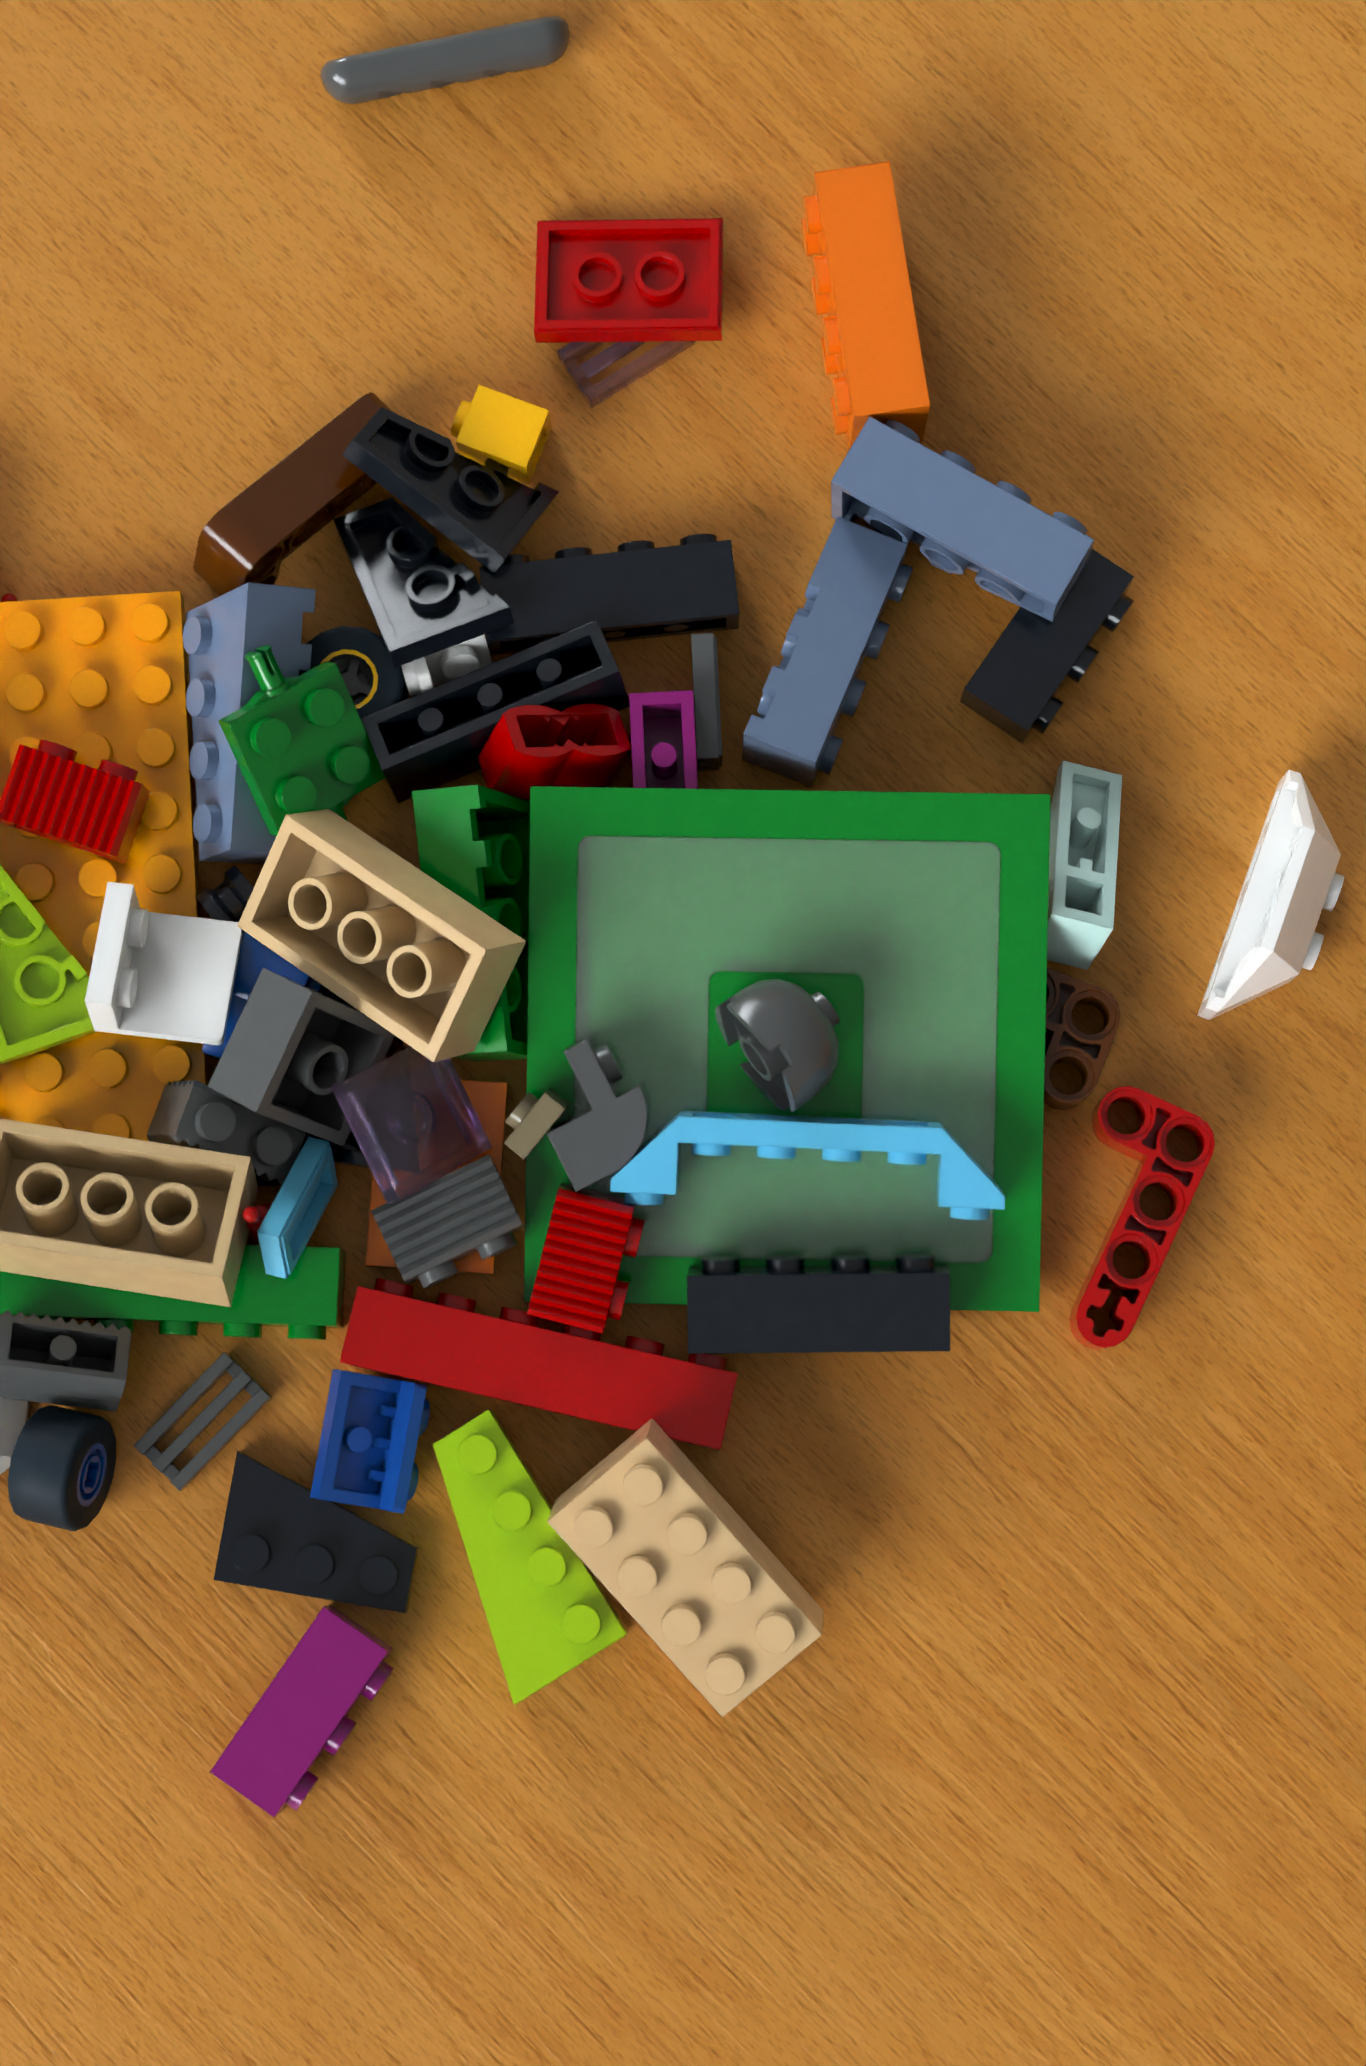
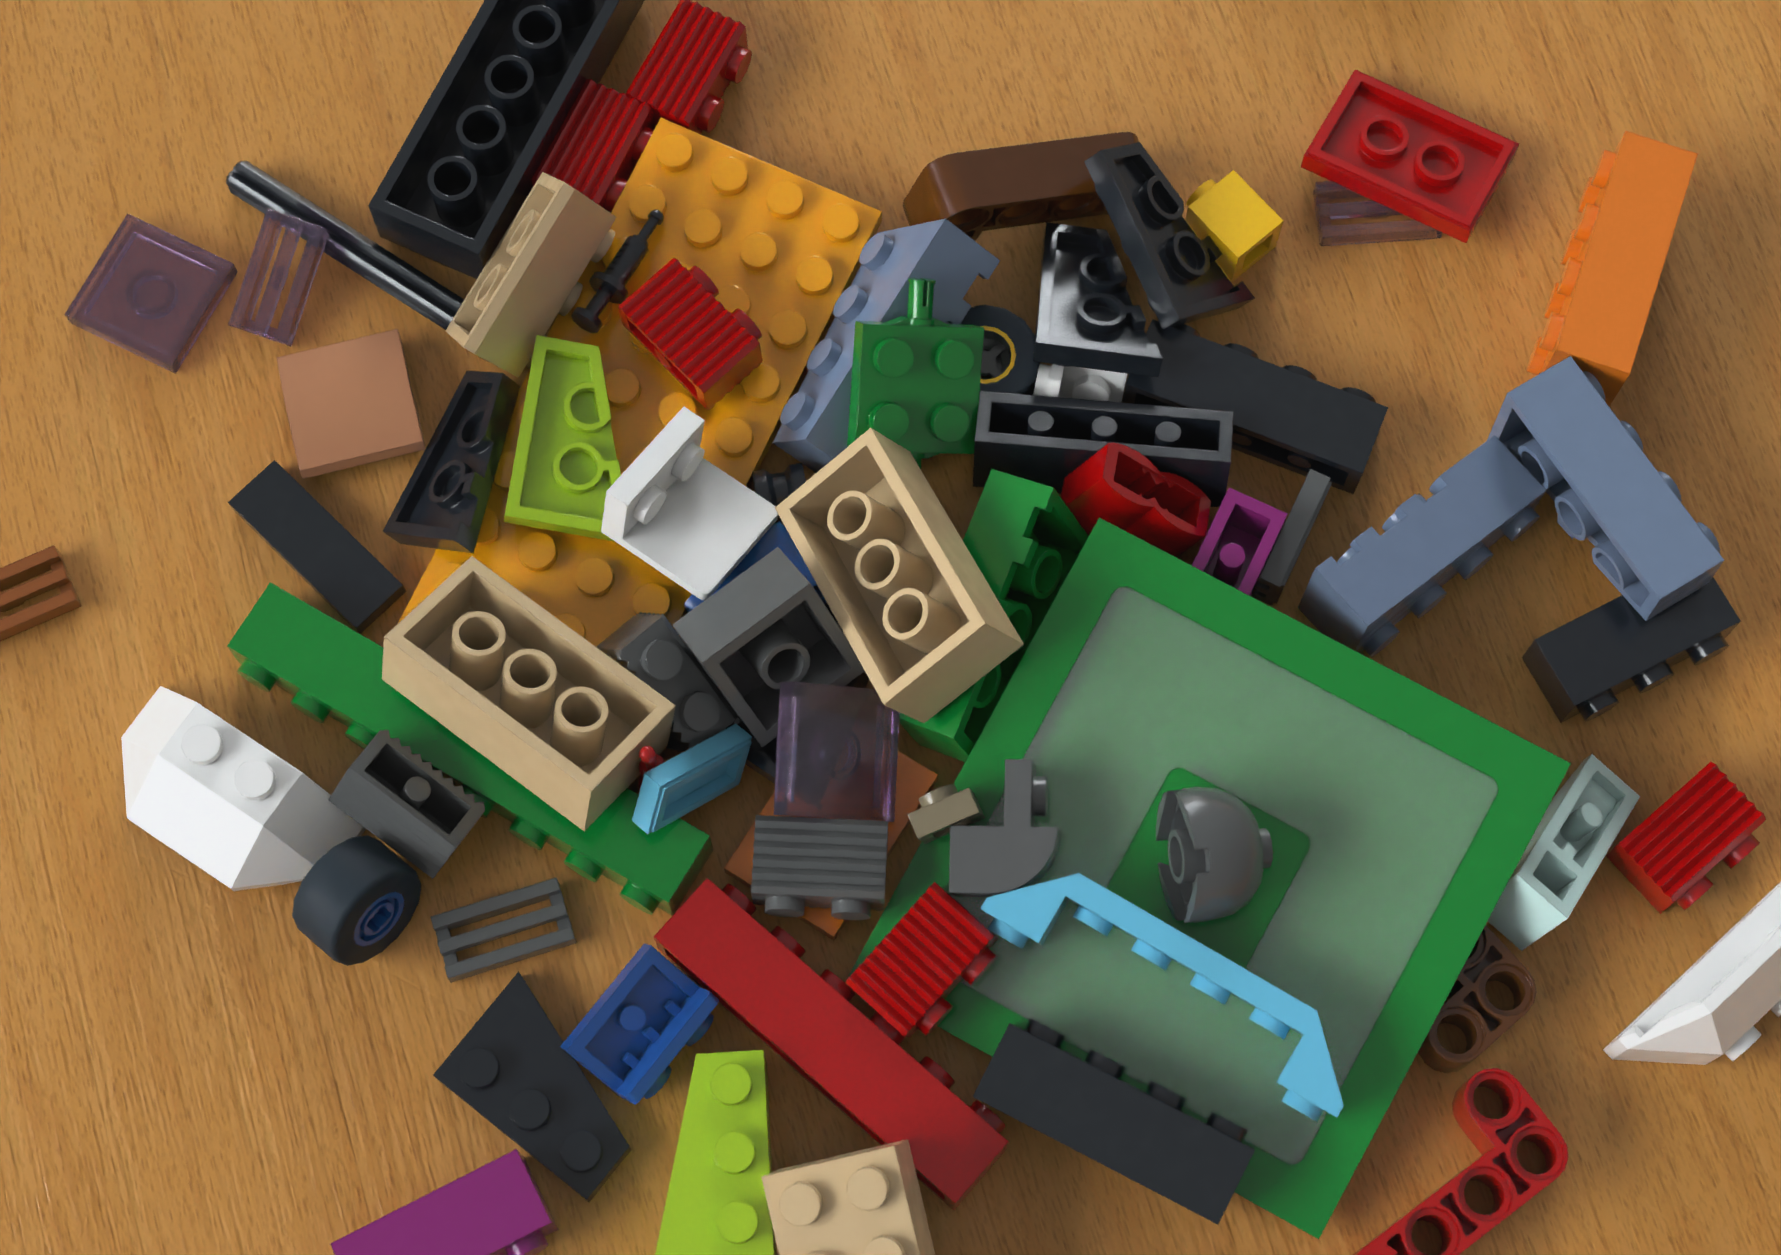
camera: 25 degrees right, 10 degrees down
(1181, 794) = (1687, 838): none -> red brick

